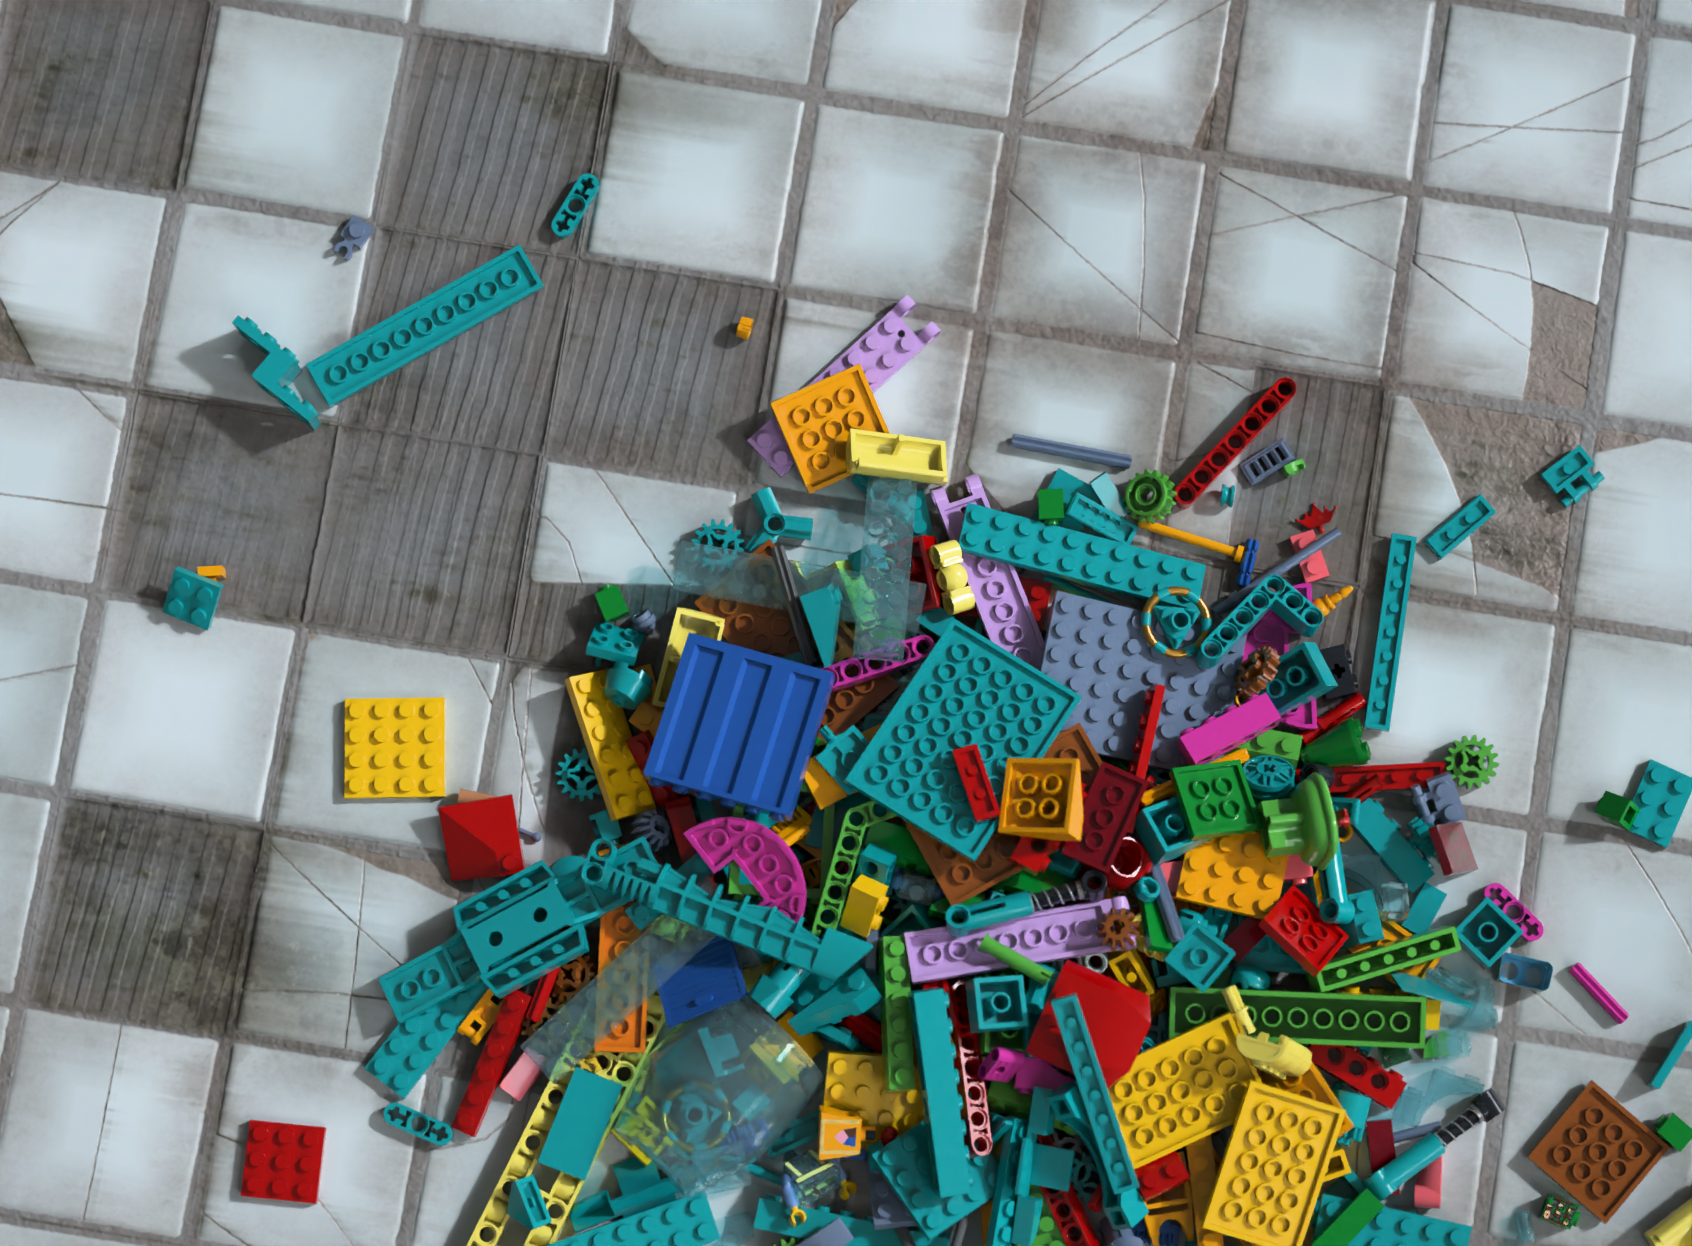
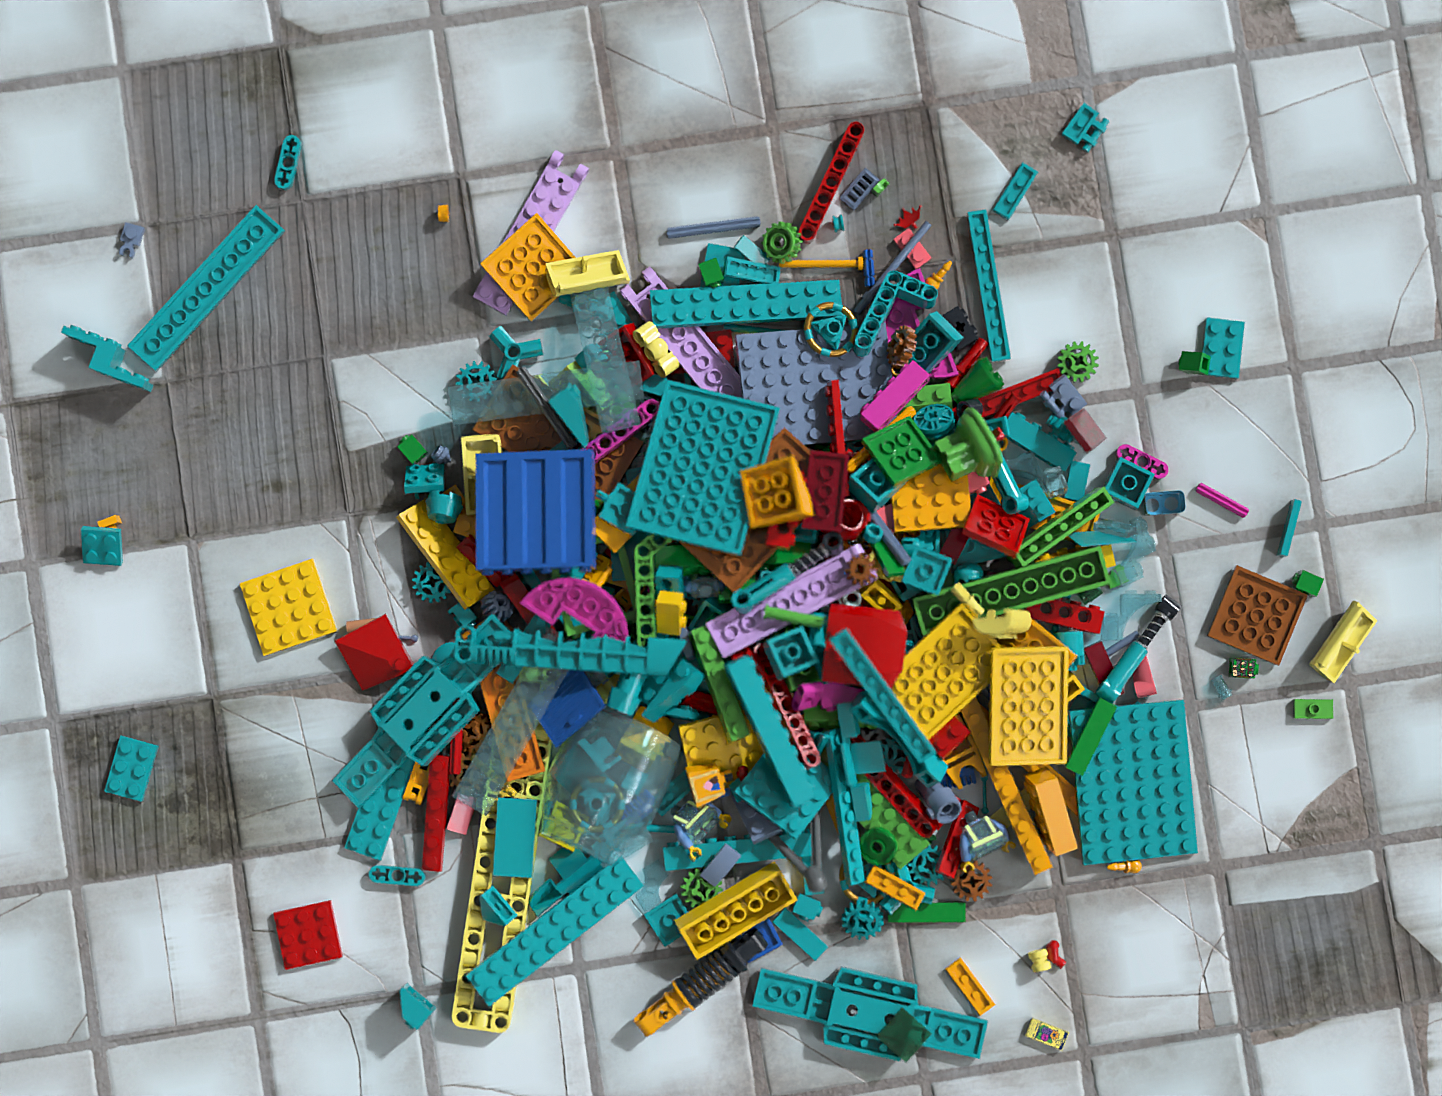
camera: 20 degrees left, 5 degrees up
(136, 883) = (131, 768): none -> teal plate
(976, 783) = (723, 497): red plate -> none

